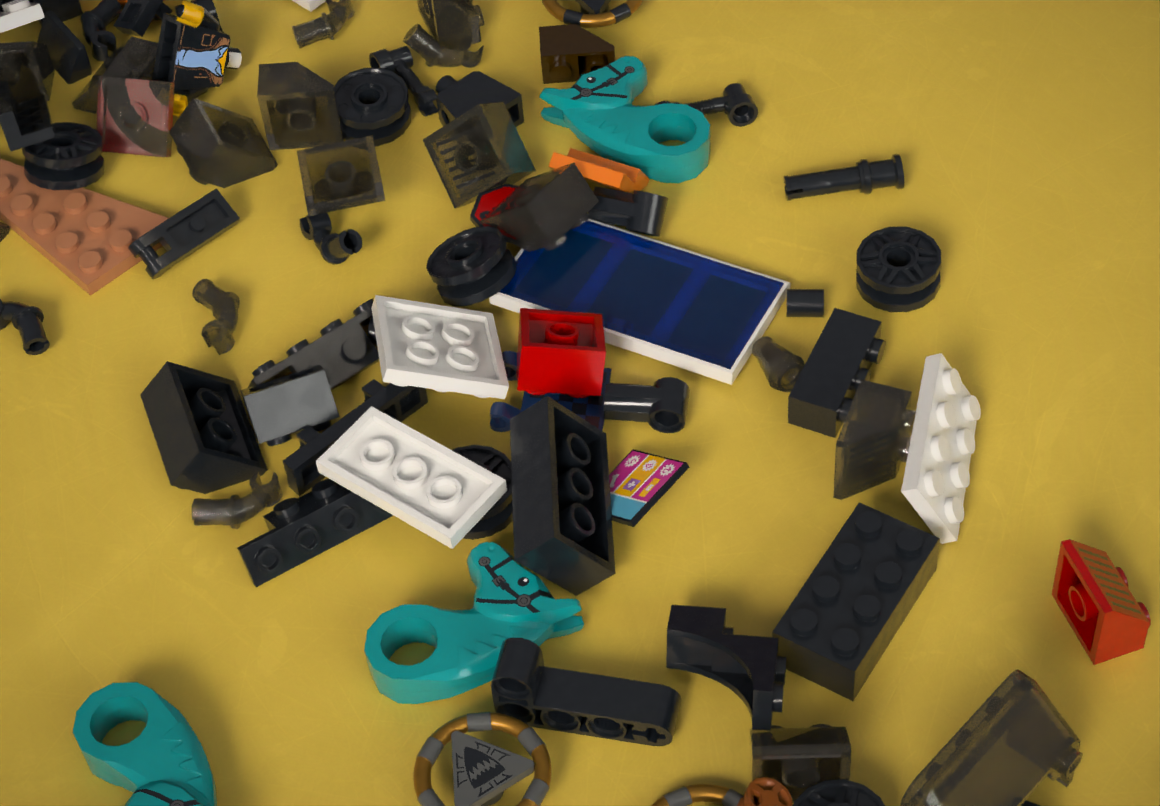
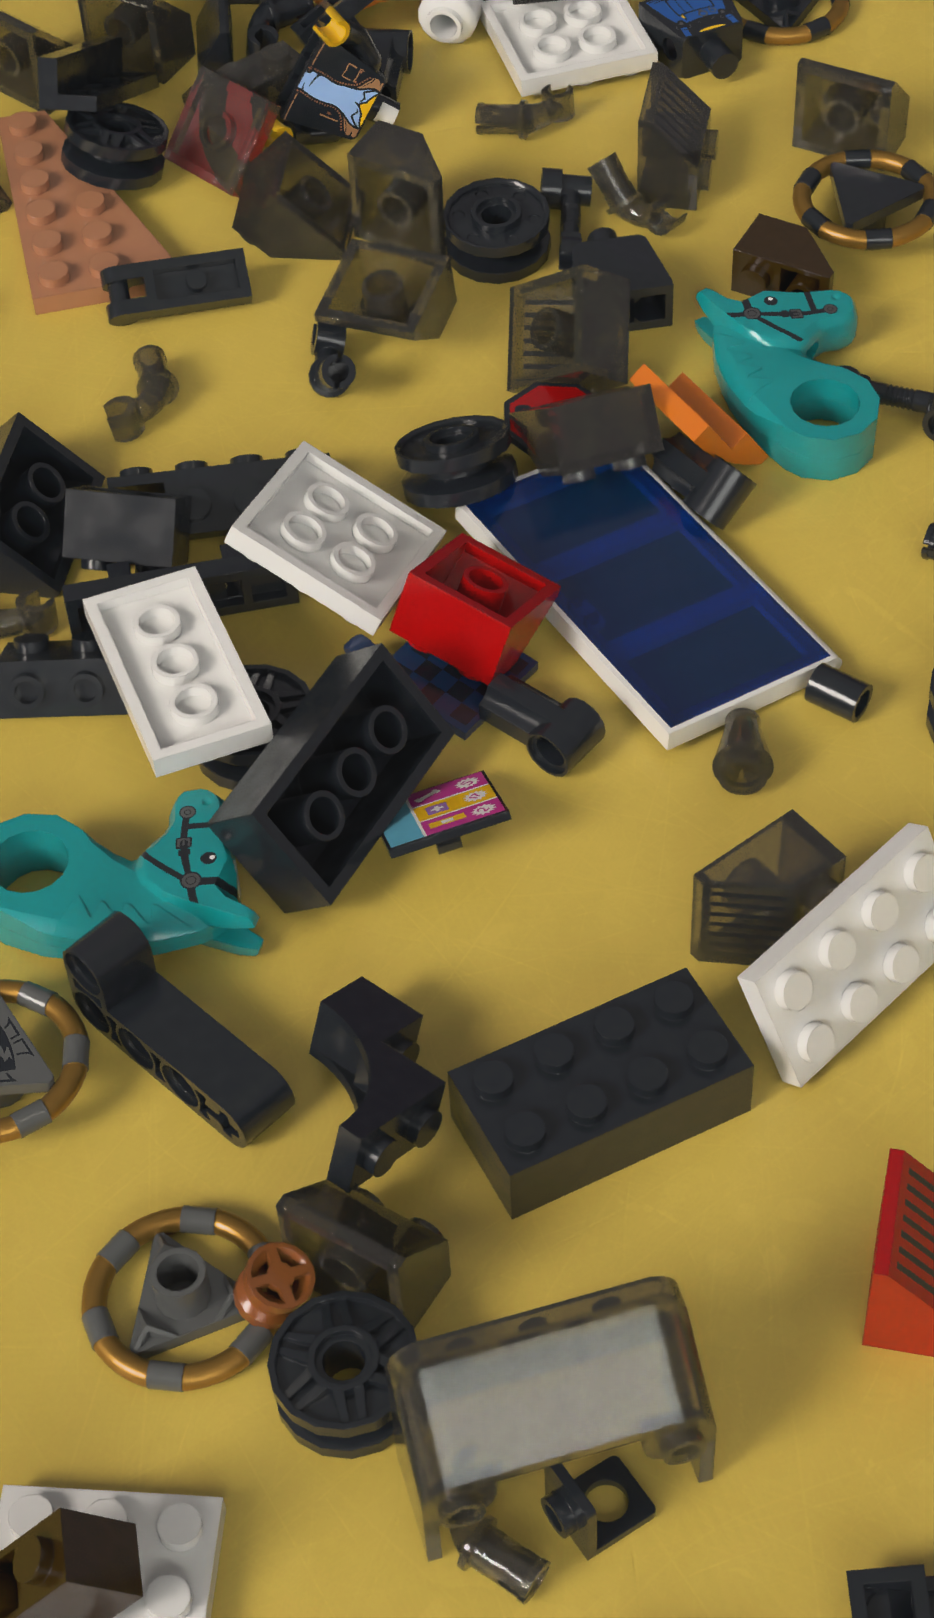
camera: 30 degrees right, 0 degrees up
(834, 372) = (823, 778): black brick -> none

